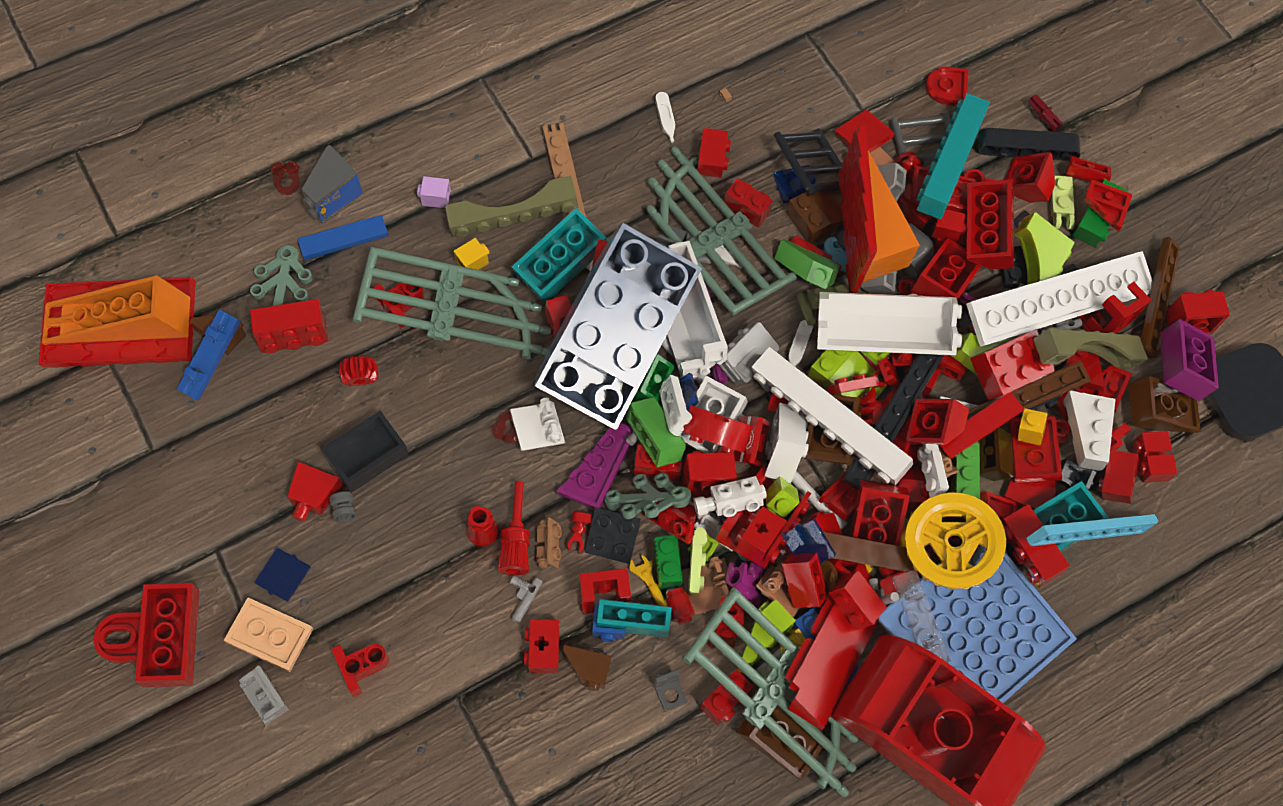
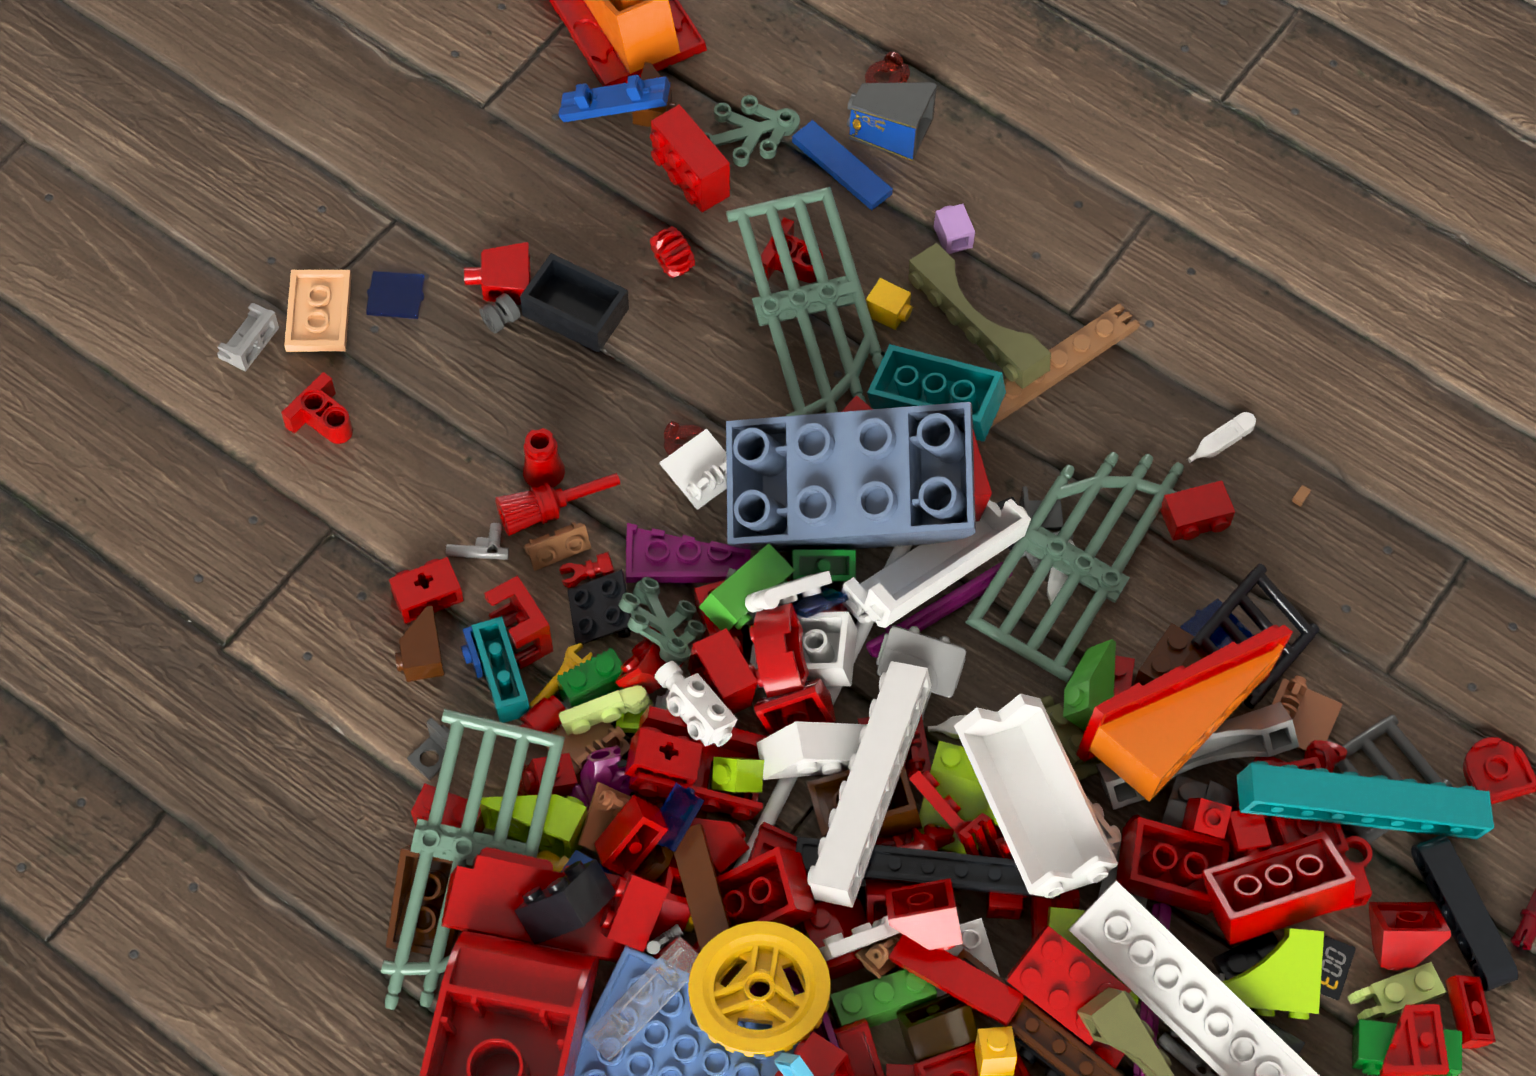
camera: 70 degrees right, 5 degrees down
(160, 635) = (269, 212): red brick -> none
(749, 201) = (1146, 580): red brick -> none
(850, 638) = (565, 902): none -> black brick
(876, 131) = (1345, 686): red tile -> none
(932, 241) = (1206, 817): none -> red brick

